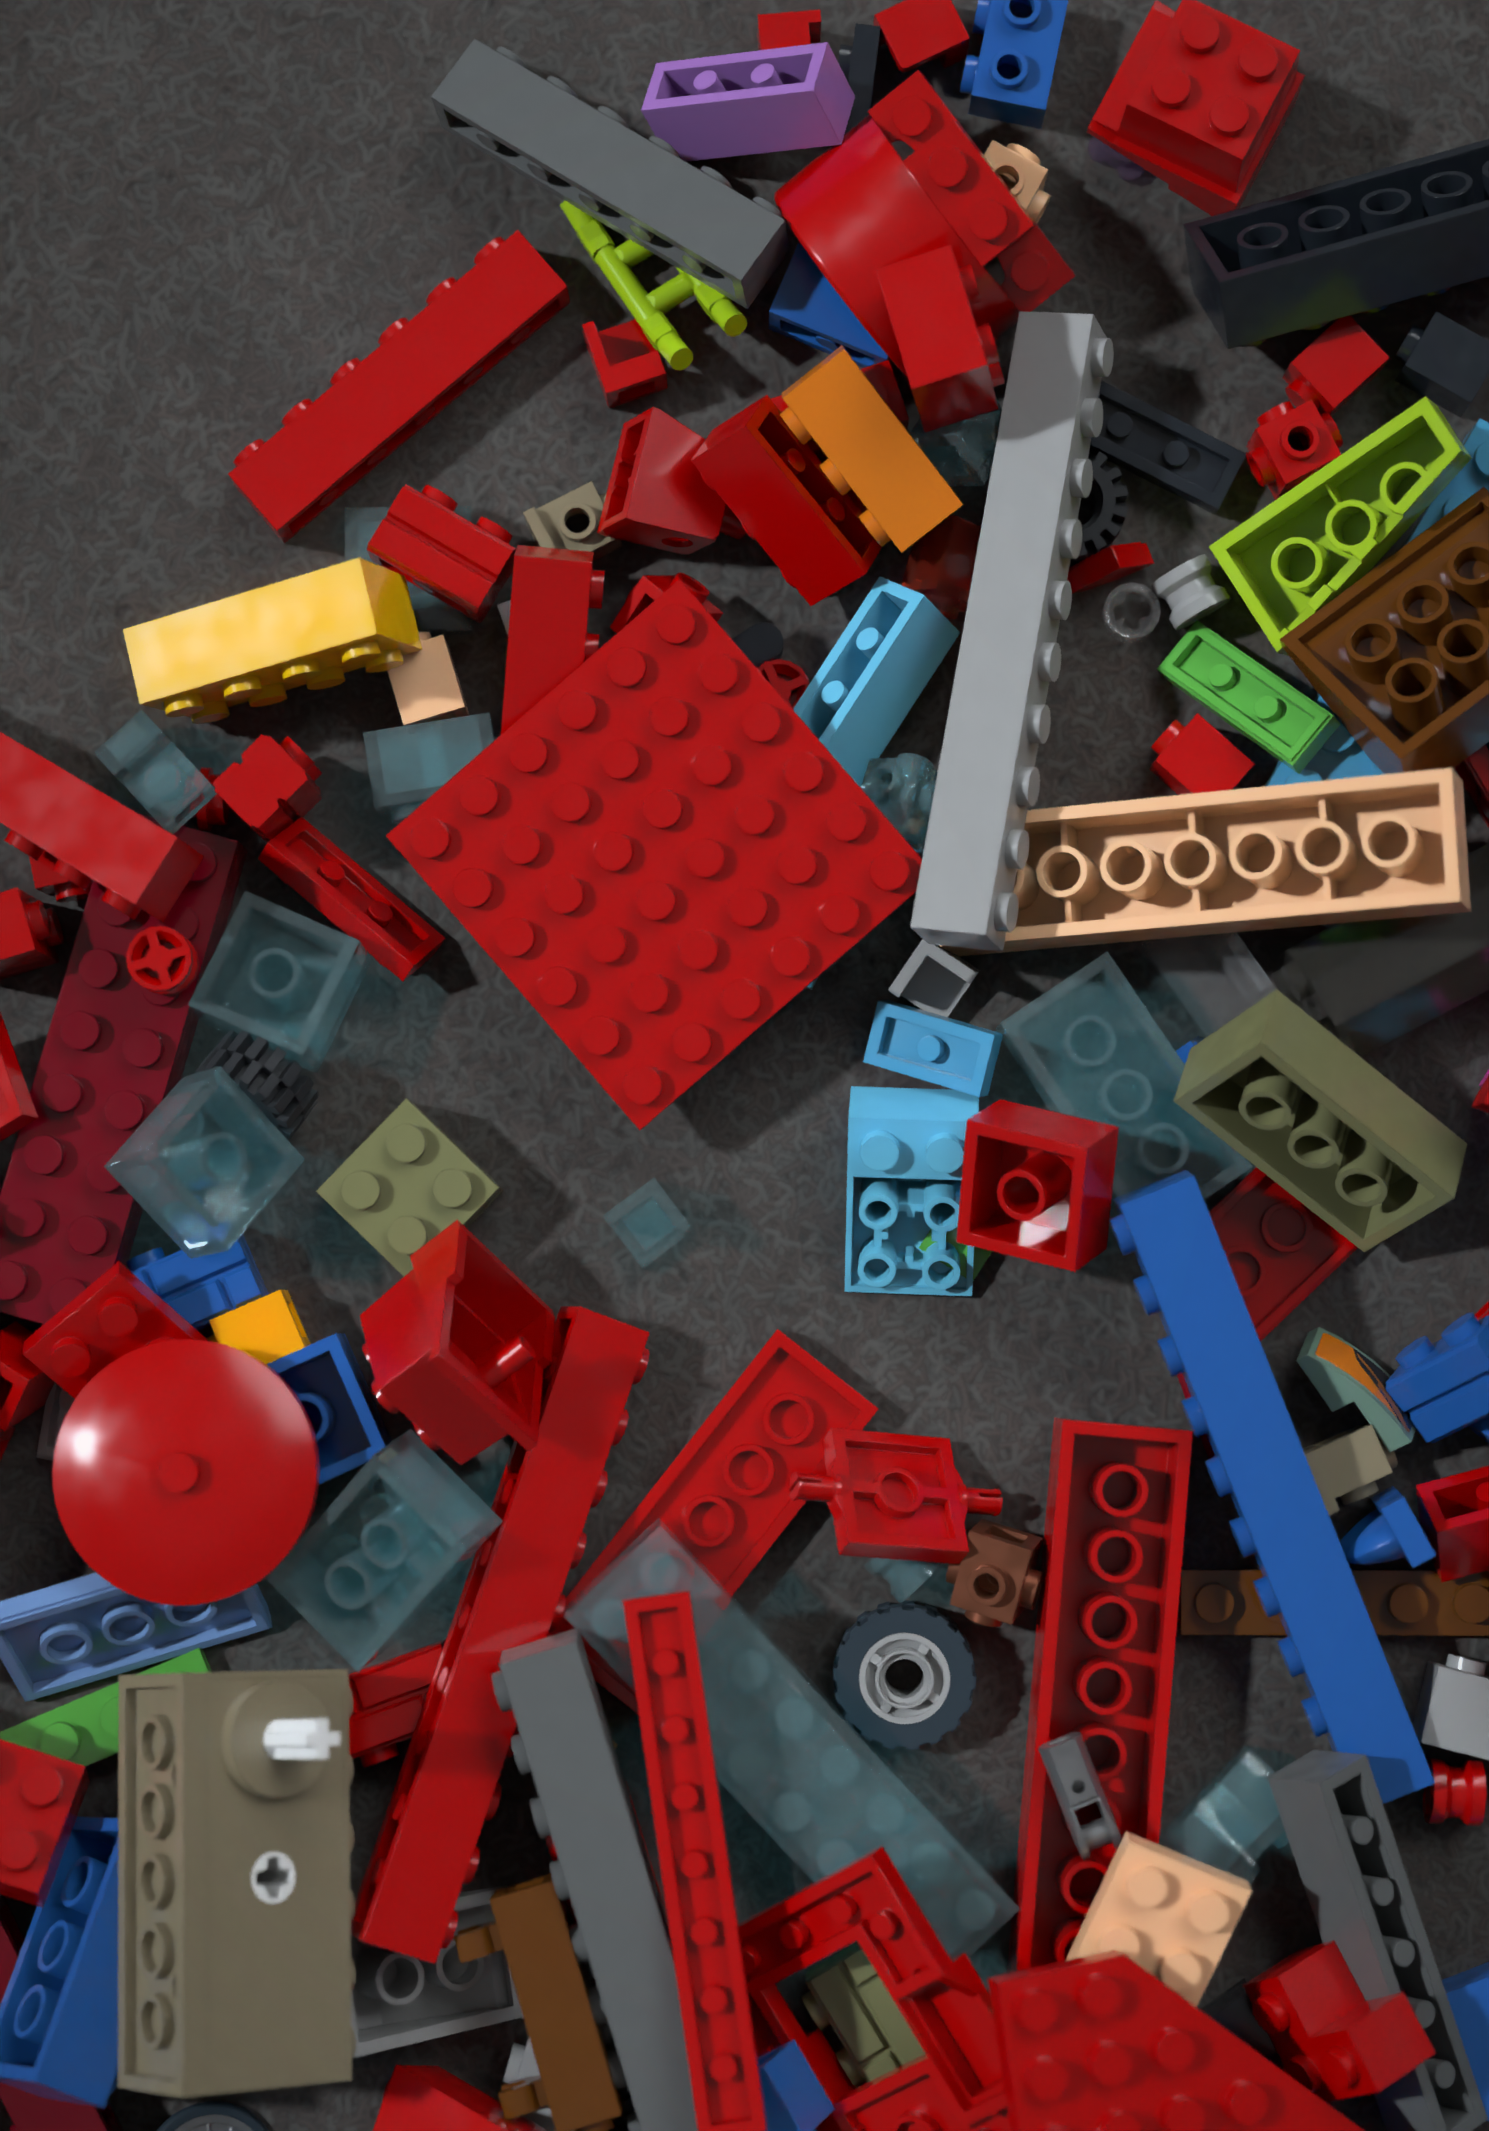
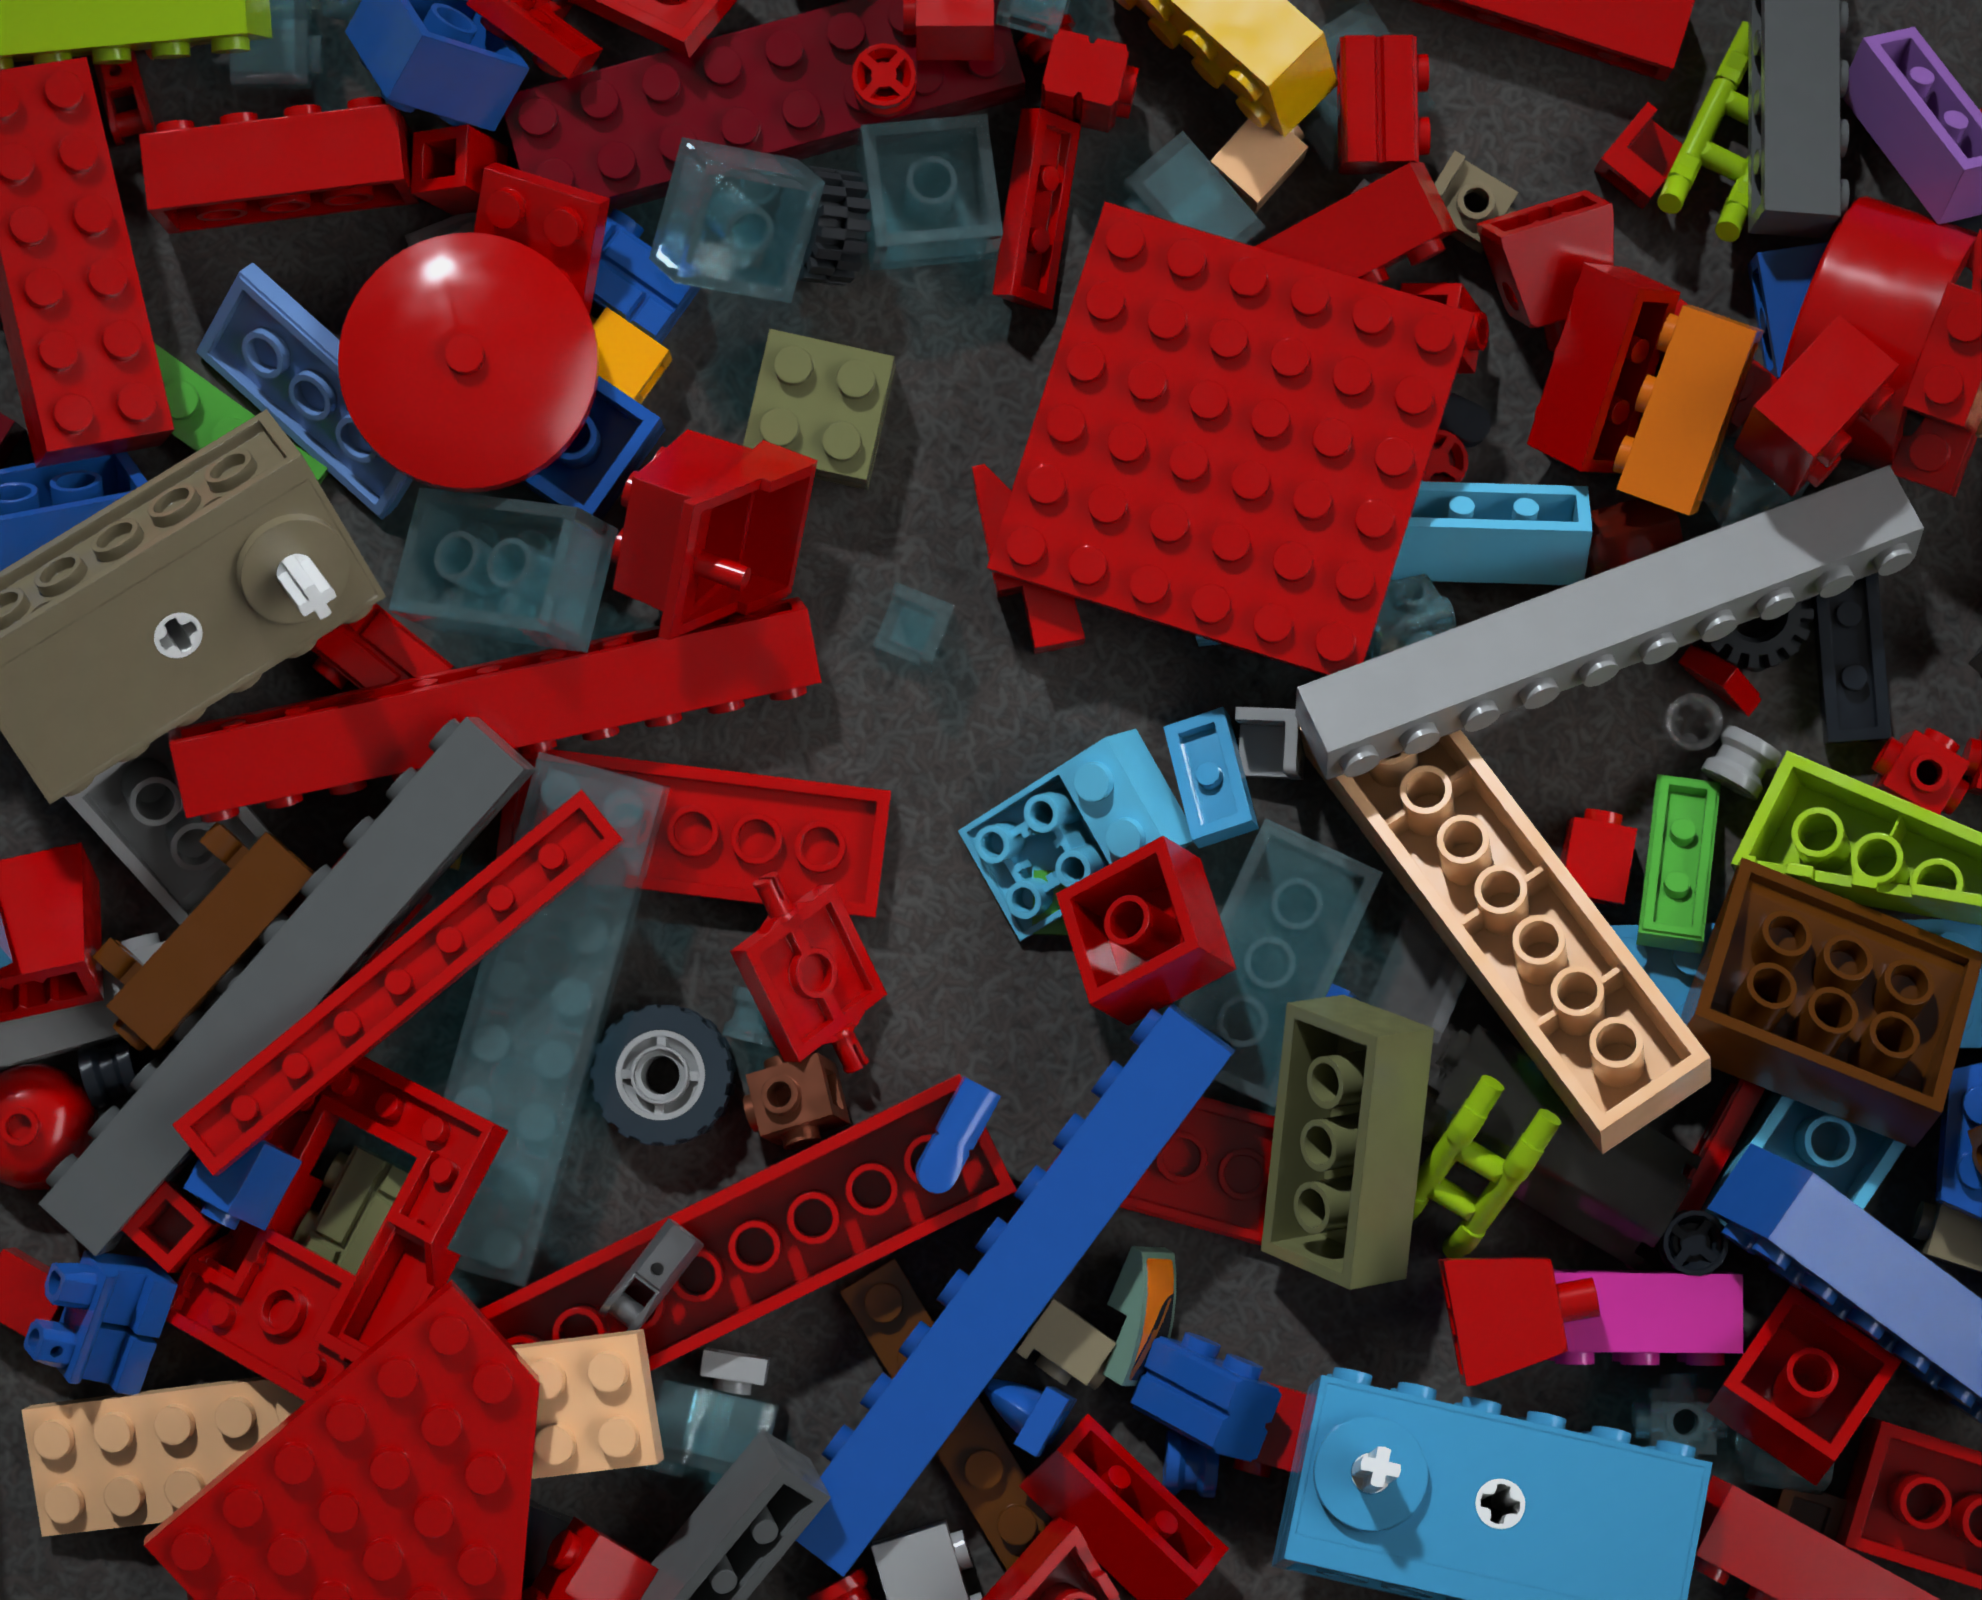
camera: 55 degrees right, 0 degrees up
(711, 1100) = (1050, 615): none -> red slope
(1116, 1455) = (955, 1136): none -> blue bar
(1195, 1767) = (734, 1370): none -> light grey plate
(1432, 1007) = (1503, 1174): none -> lime piece

